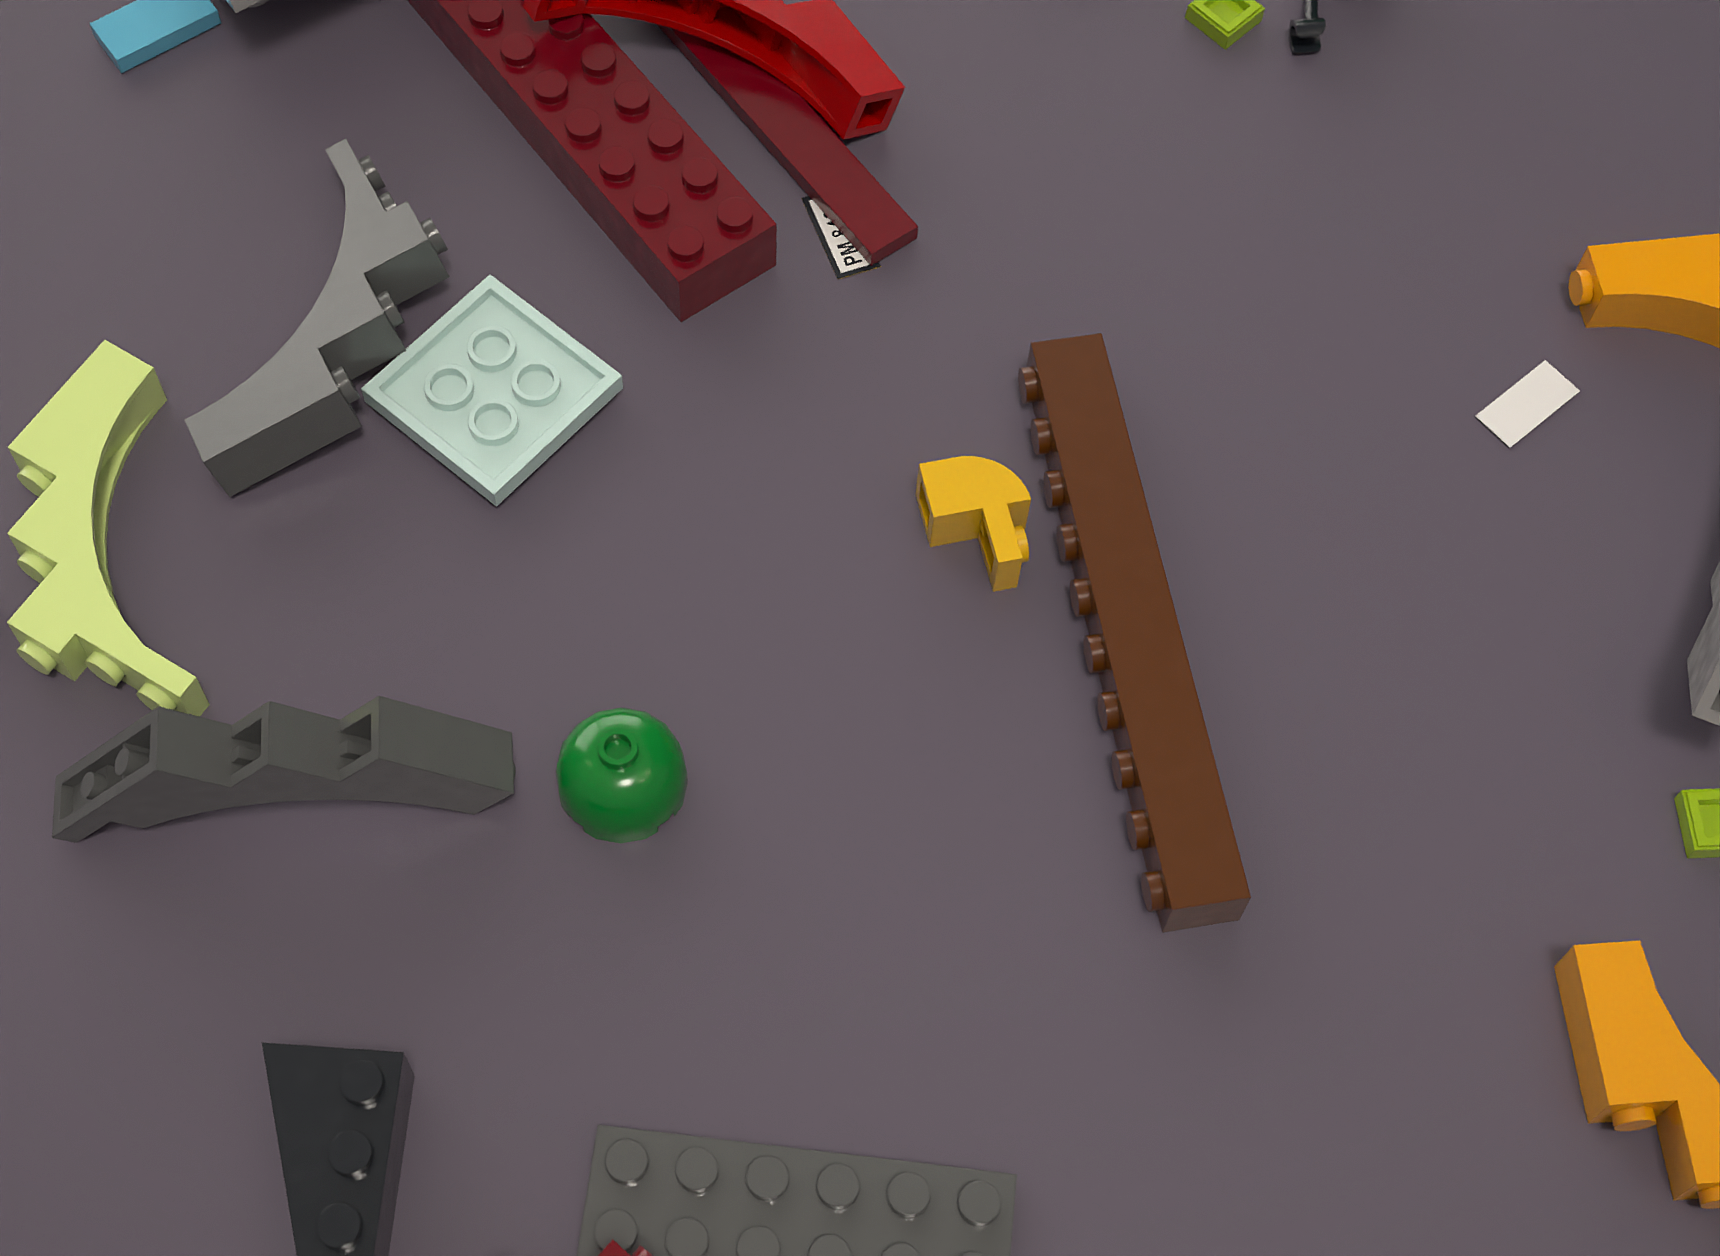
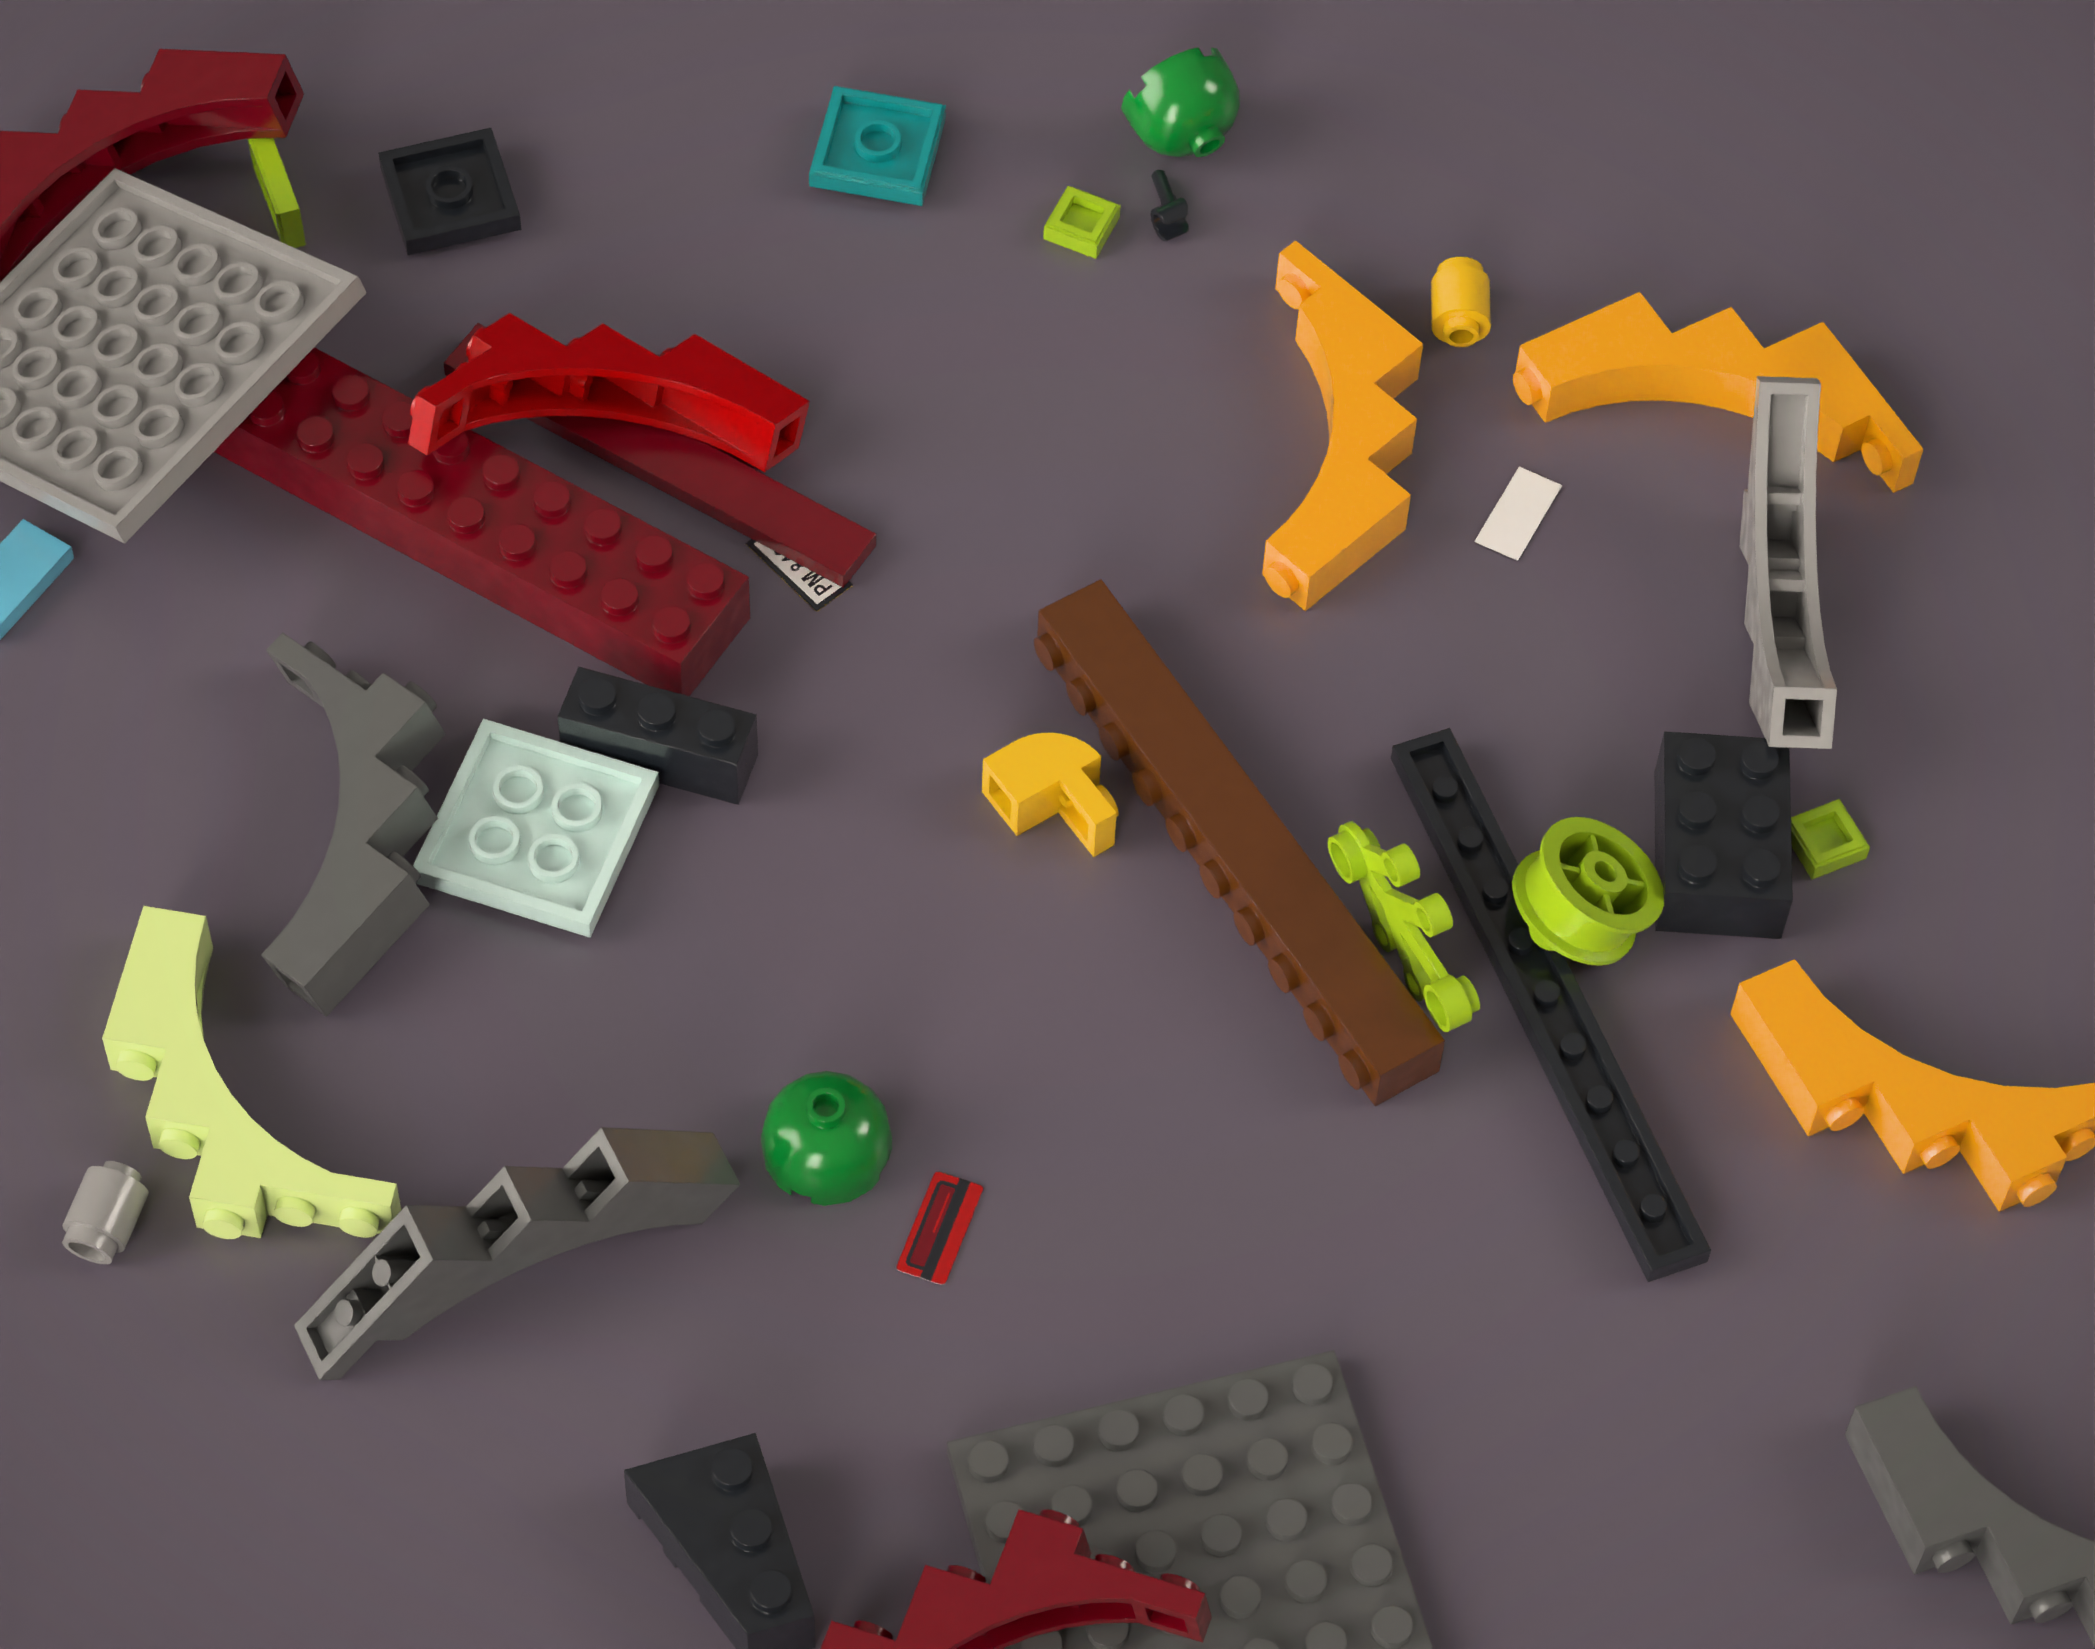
camera: 20 degrees left, 5 degrees down
(640, 340) = (679, 736): none -> black brick
(692, 901) = (939, 1228): none -> sticker
(1256, 765) = (1397, 920): none -> lime plant
(1371, 342) = (1361, 367): none -> light orange arch
(1375, 909) = (1551, 1010): none -> black plate
(1453, 796) = (1587, 891): none -> lime wheel
(1546, 190) = (1460, 302): none -> yellow brick
(1612, 786) = (1723, 835): none -> black brick

